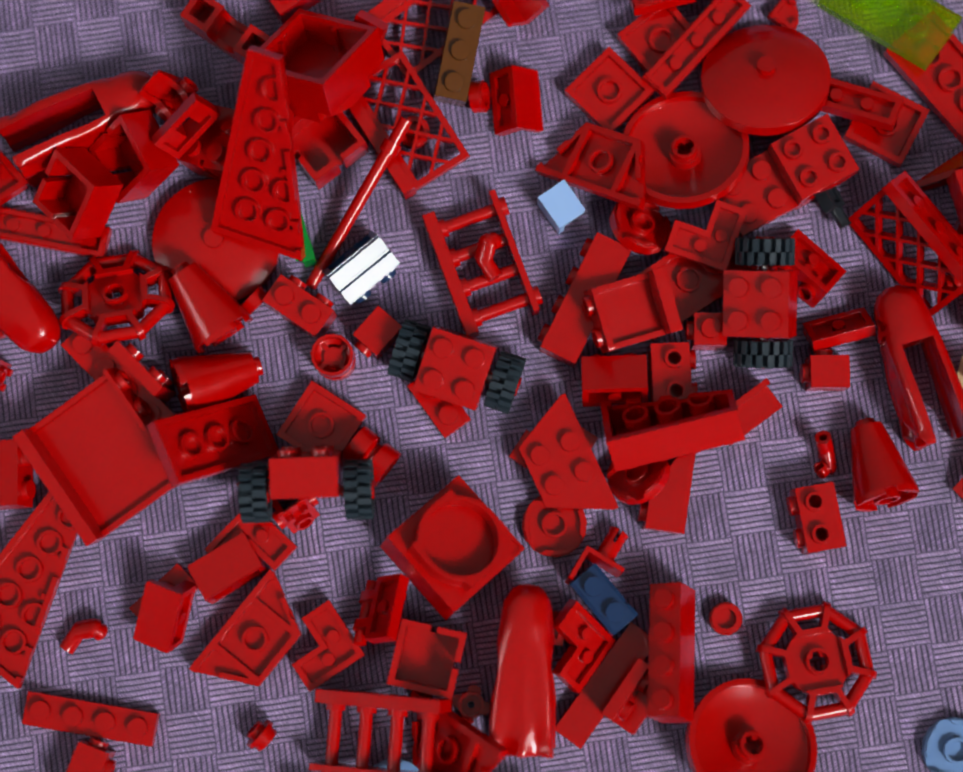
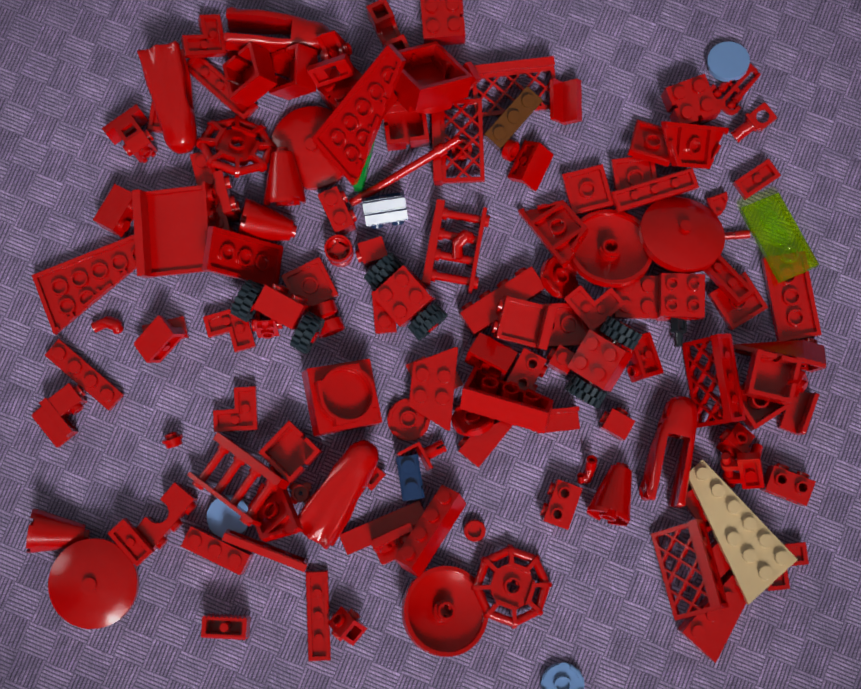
camera: 30 degrees right, 0 degrees up
(226, 568) = (208, 335): red panel -> none
(253, 637) = (200, 382): red wing -> none
(254, 300) = (313, 193): red tile -> none
(380, 610) = (280, 409): red plate -> none
(560, 206) = (519, 239): light blue panel -> none
(587, 648) = (386, 497): red plate -> none
(835, 38) = (737, 235): none -> red pin
(839, 329) = (639, 403): red plate -> none

